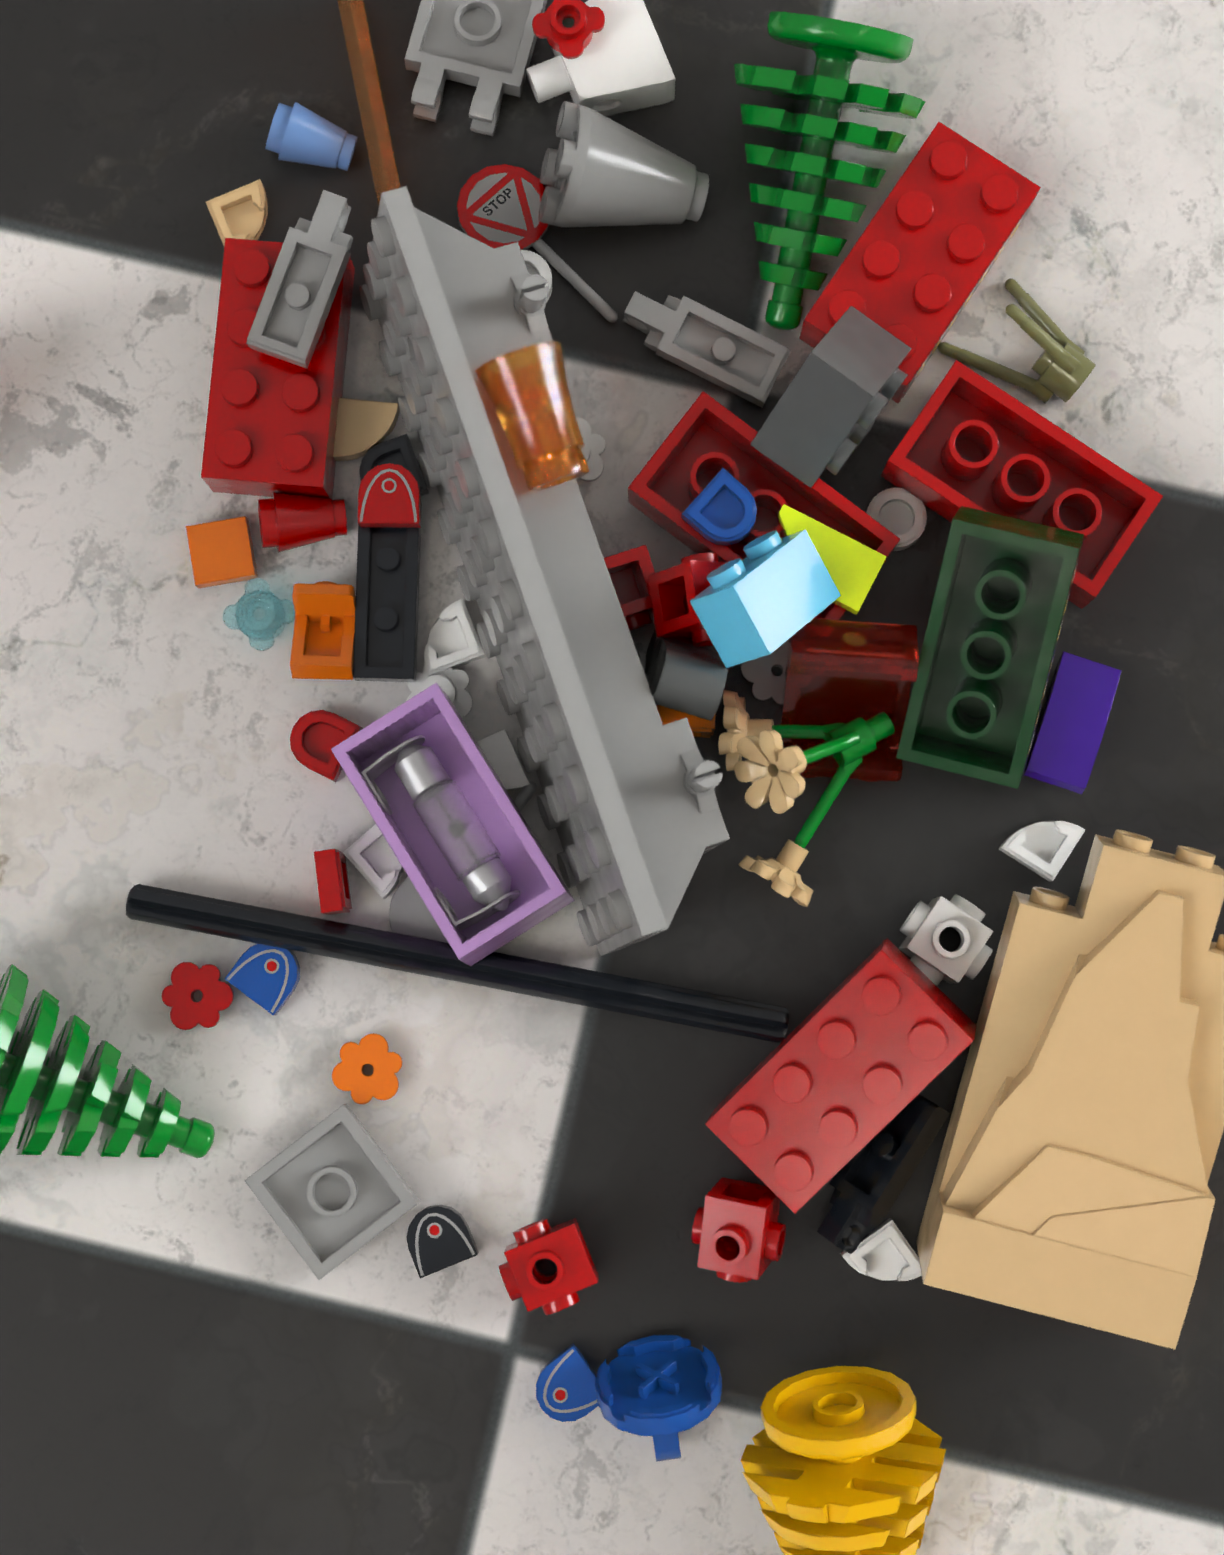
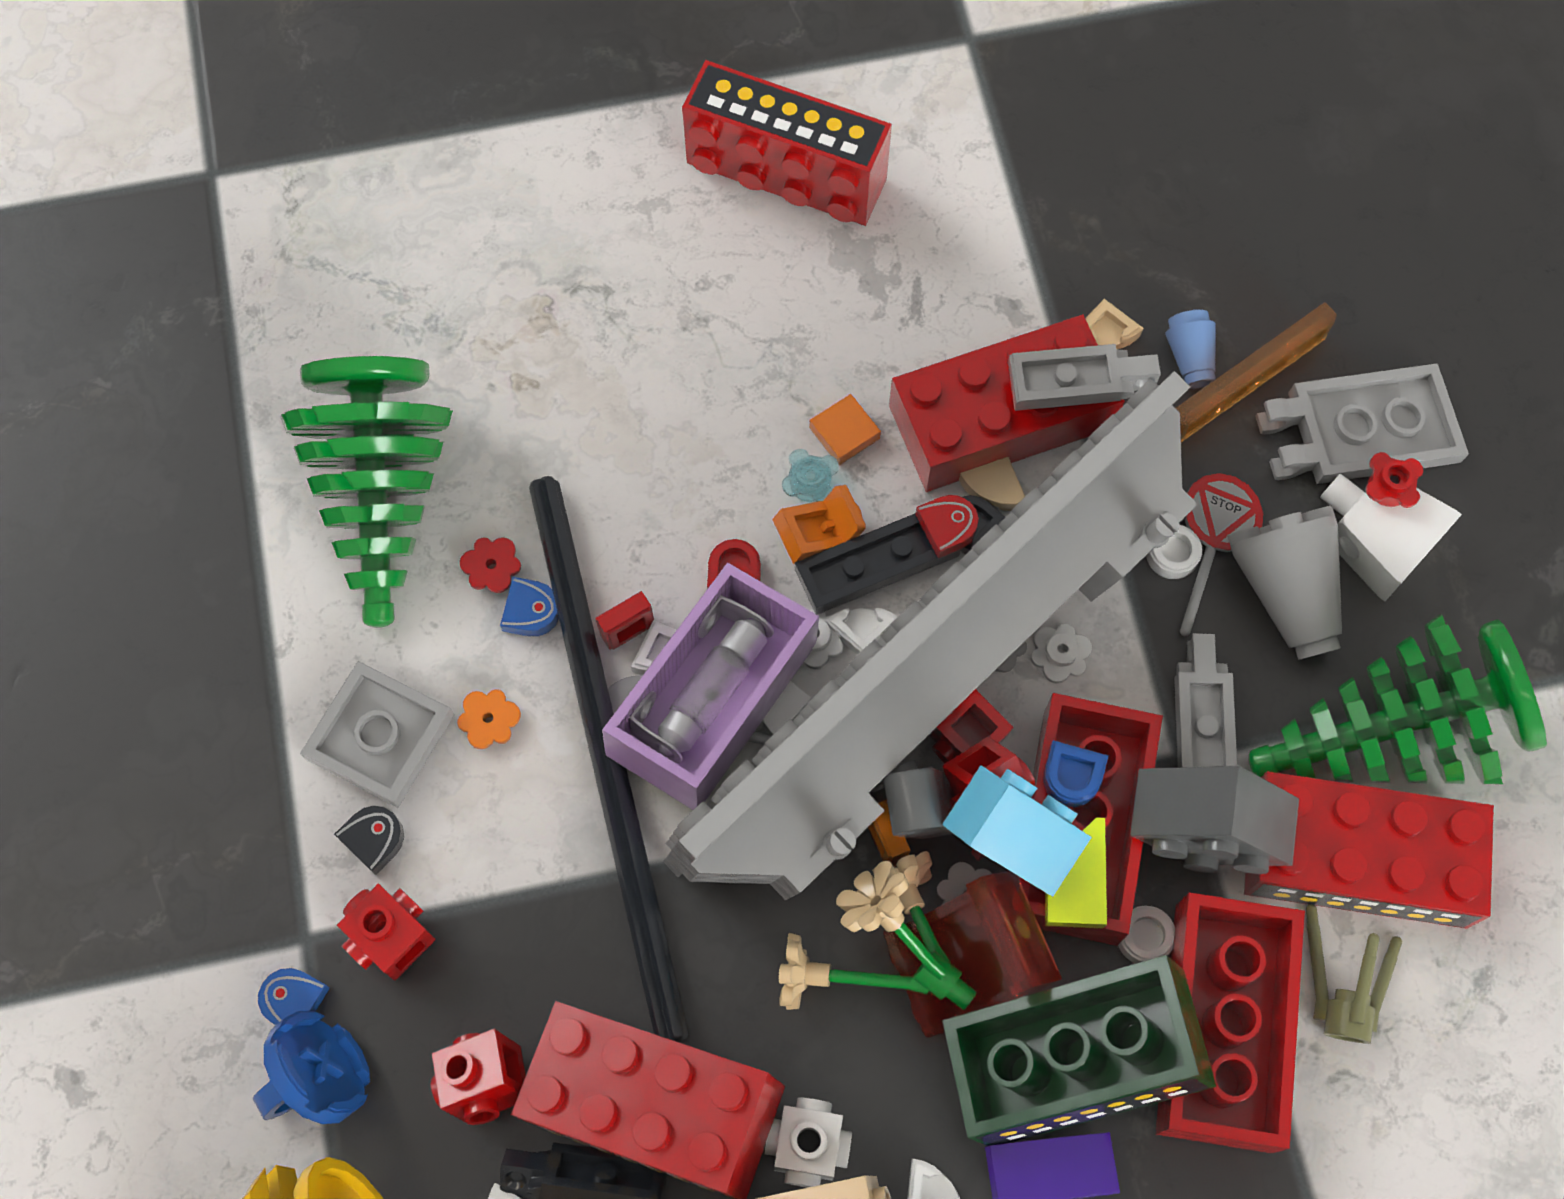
camera: 60 degrees right, 15 degrees down
(299, 520) = (897, 470): red cone -> none
(536, 413) = (1068, 570): clear orange plant -> none

